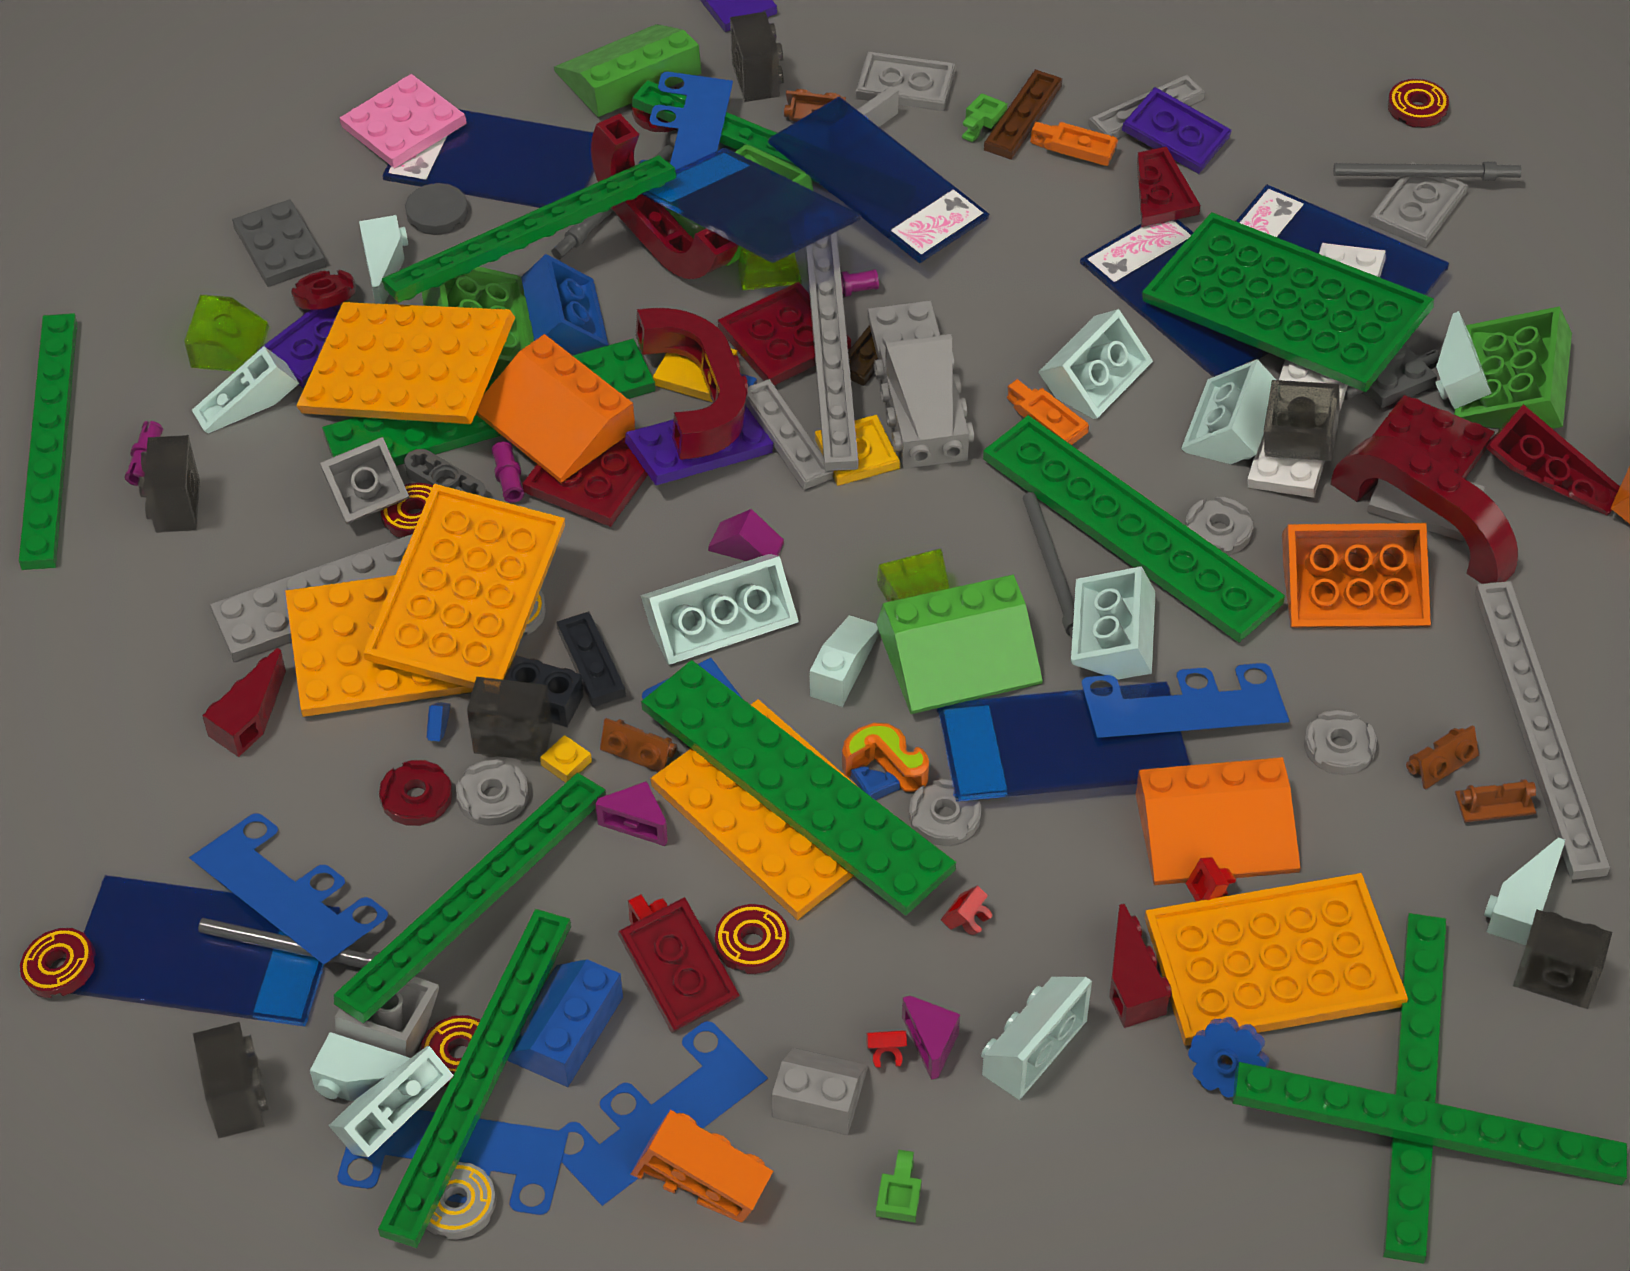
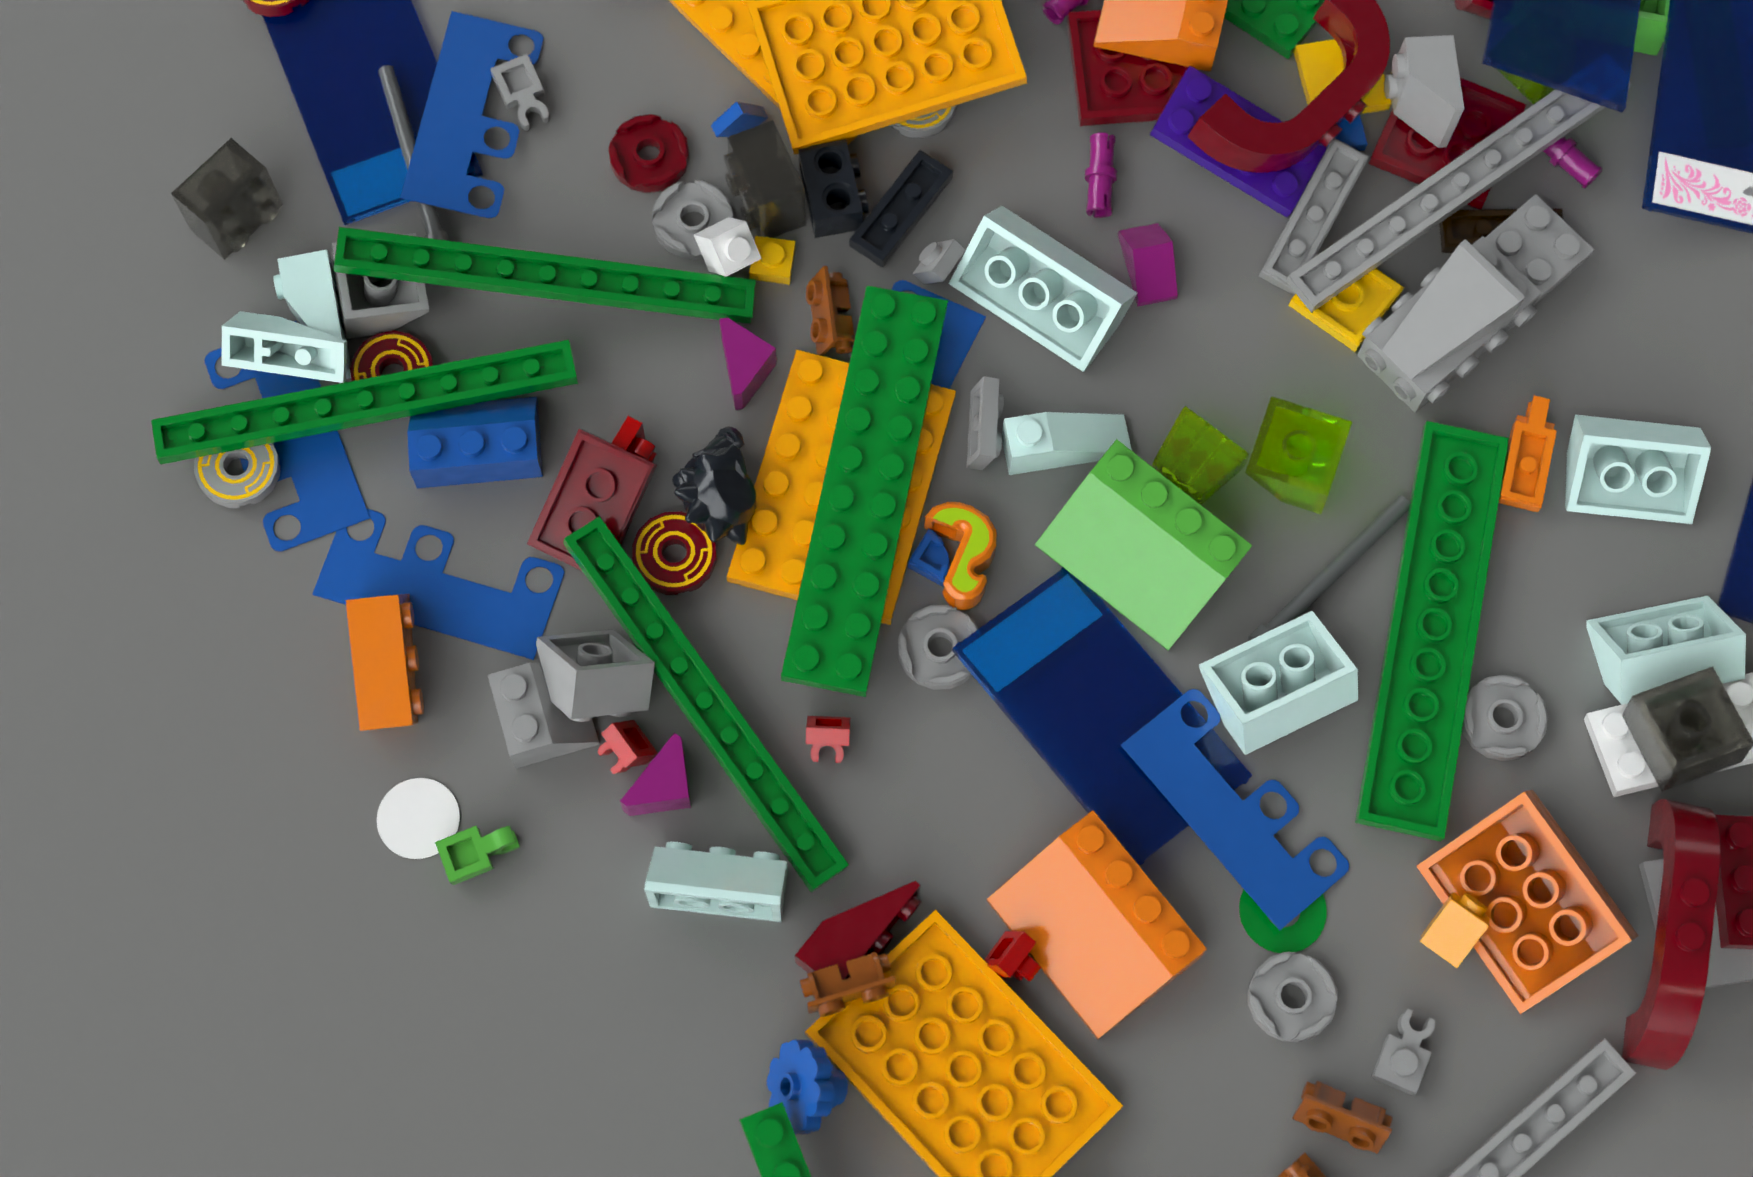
camera: 55 degrees right, 20 degrees up
(292, 843) = (520, 86): none -> light grey plate
(540, 772) = (727, 246): none -> white brick
(652, 656) = (938, 261): none -> light grey plate
(660, 532) = (1100, 175): none -> magenta pin
(727, 872) = (718, 489): none -> black head
(756, 312) = (1427, 87): none -> light grey slope
(796, 694) = (984, 412): none -> light grey plate
(820, 1026) = (595, 674): none -> light grey slope
(842, 1222) = (416, 817): none -> white sticker
(884, 970) = (706, 704): none -> green plate
(962, 523) = (1298, 453): none -> clear neon green slope
(1168, 998) = (865, 982): none -> dark orange hinge
(1290, 732) = (1288, 939): none -> green piece
(1353, 620) = (1456, 928): none -> light orange brick
(1421, 704) = (1402, 1059): none -> light grey plate

